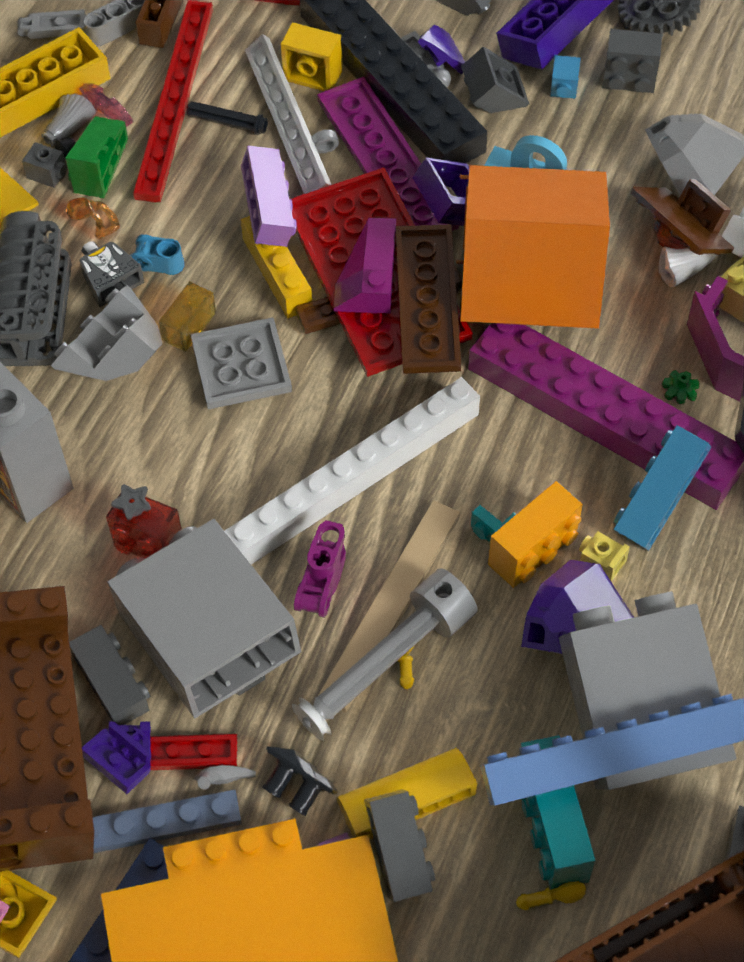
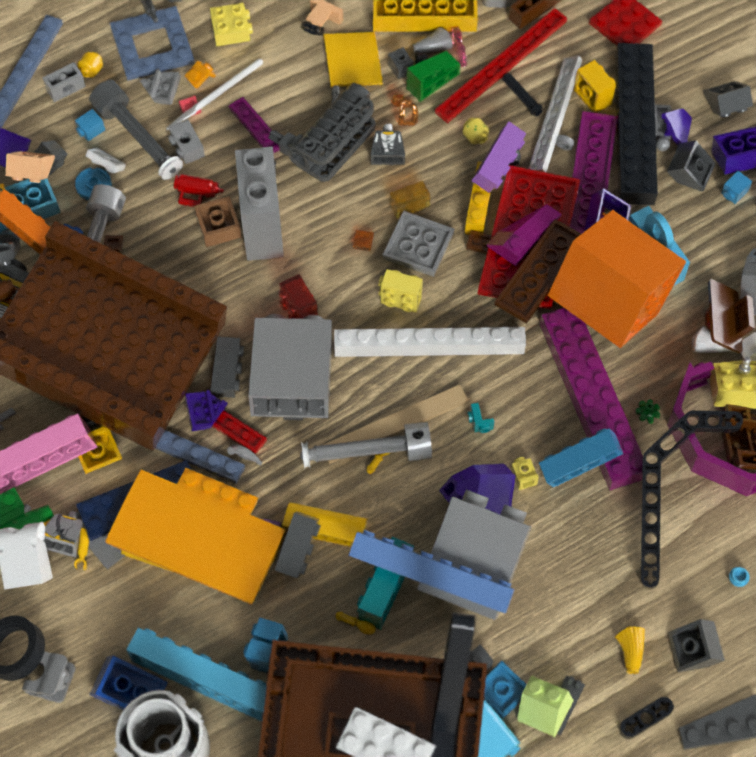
camera: 35 degrees right, 5 degrees up
(113, 341) = (360, 188): light grey brick -> none
(135, 508) = (296, 288): dark grey plate -> none
(159, 254) = (421, 154): dark azure piece -> none
(165, 403) = (363, 240): none -> clear orange tile
(205, 189) = (475, 131): none -> light yellow head
(269, 430) = (400, 290): none -> light yellow brick
(291, 763) = (280, 471): black connector -> none
(322, 572) = (369, 383): magenta piece -> none
(535, 535) = (494, 437): light orange brick -> none

